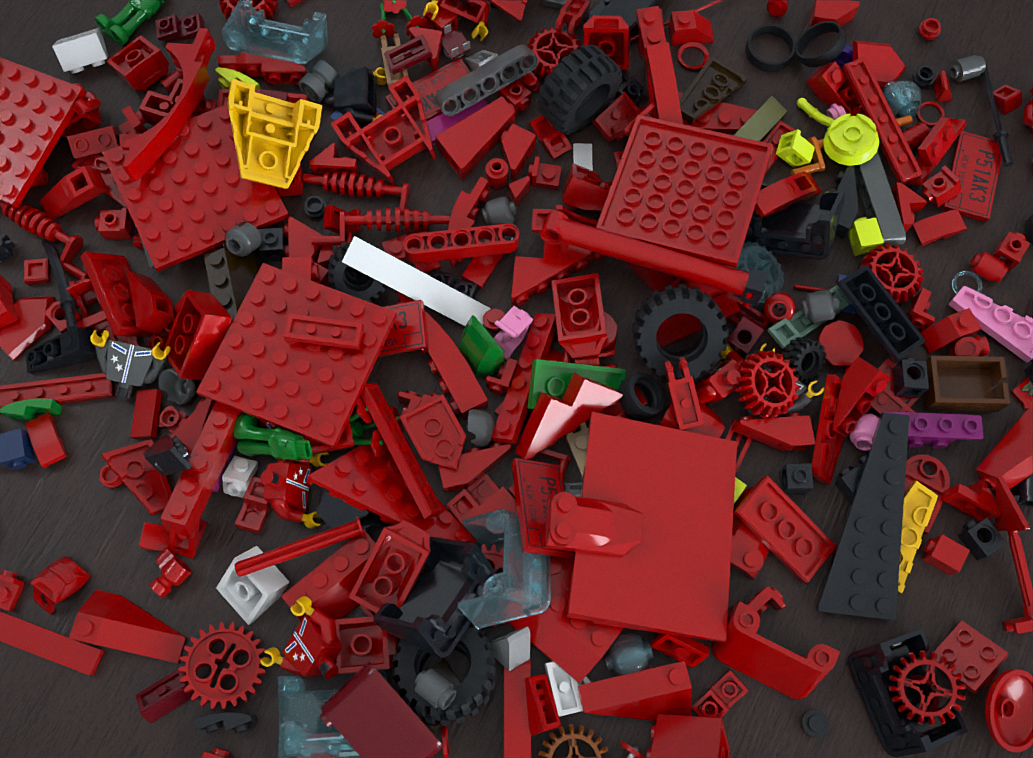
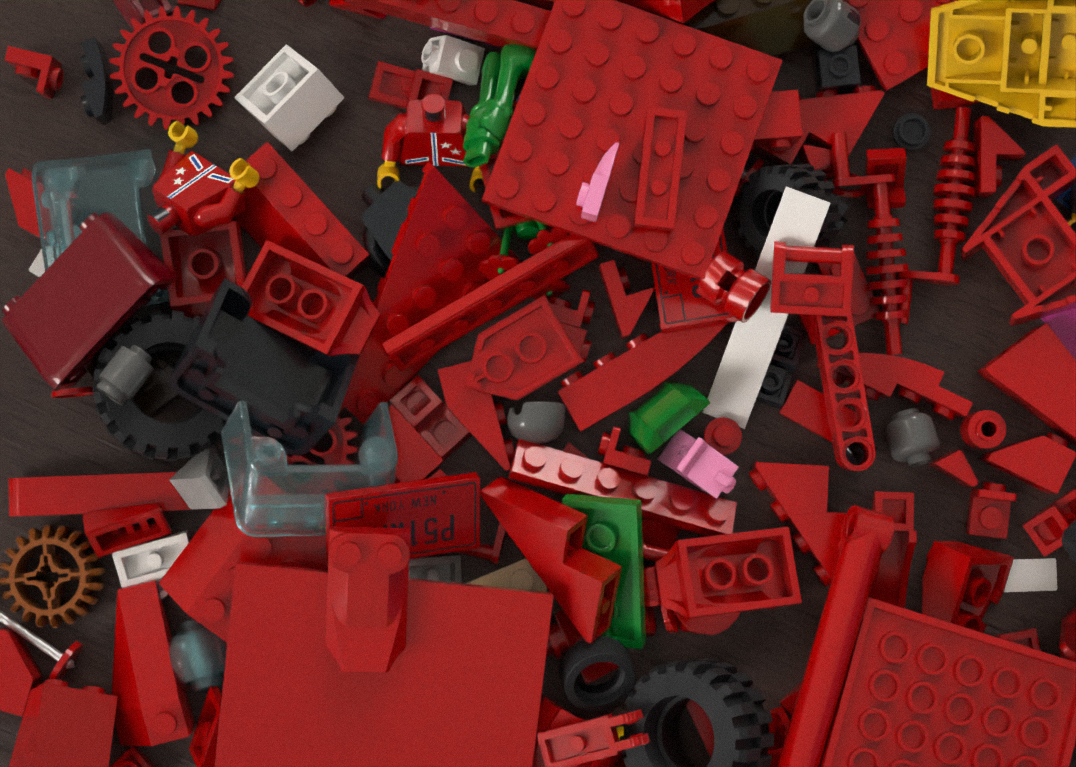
camera: 90 degrees right, 15 degrees up
(299, 548) = (333, 163): red axle -> none
(335, 370) = (592, 194): none -> bright pink plate
(408, 254) = (812, 292): none -> red plate
(408, 291) = (744, 295): none -> red wheel
(411, 374) = (624, 308): none -> red slope

